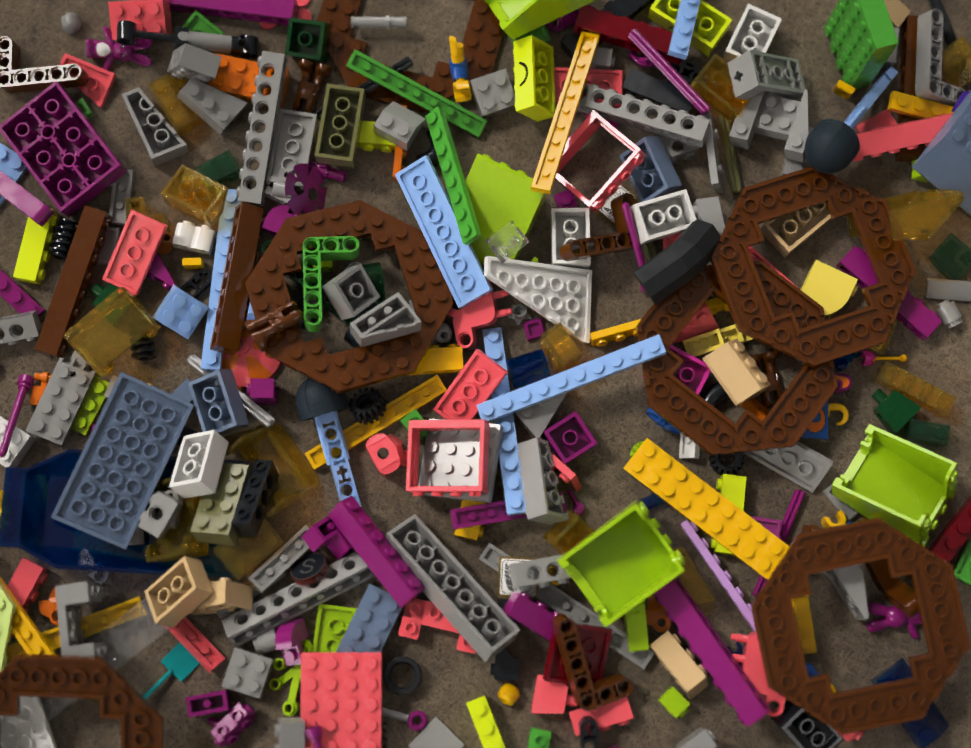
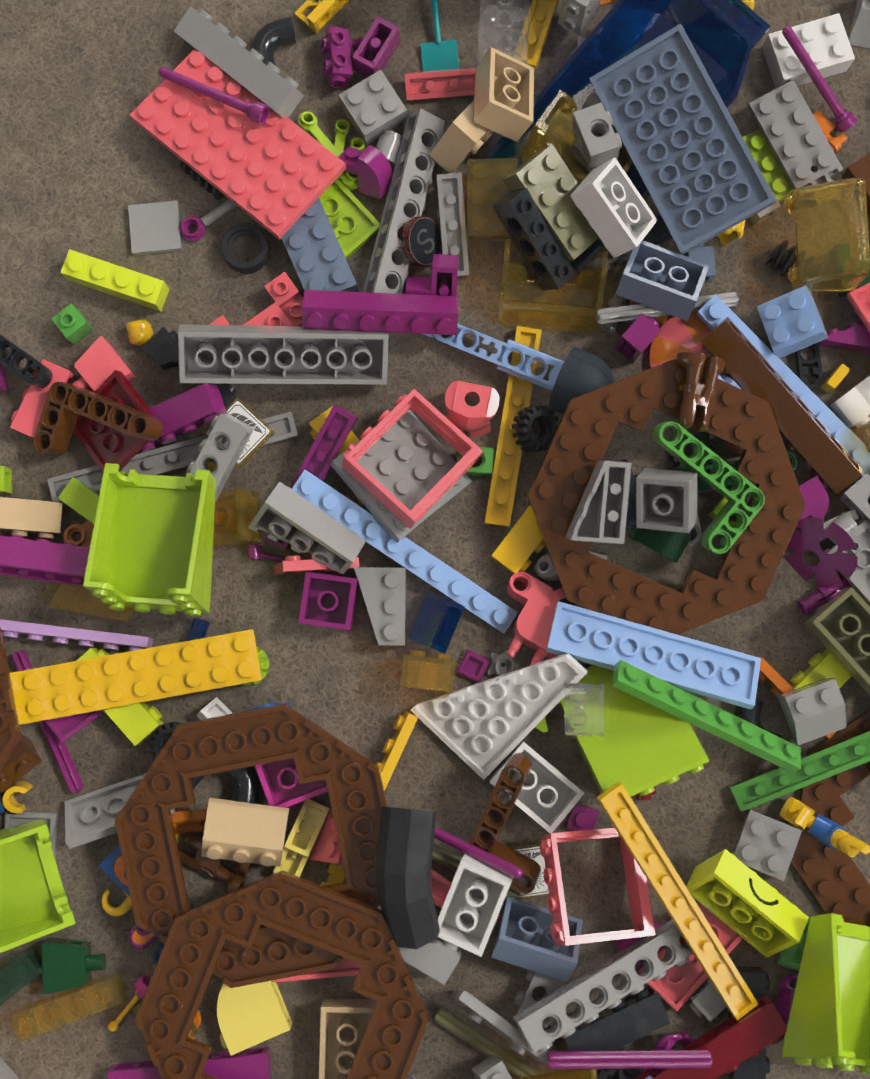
camera: 135 degrees right, 5 degrees up
(471, 387) = (464, 545): coral plate -> none
(572, 379) = (380, 653): light blue plate -> none

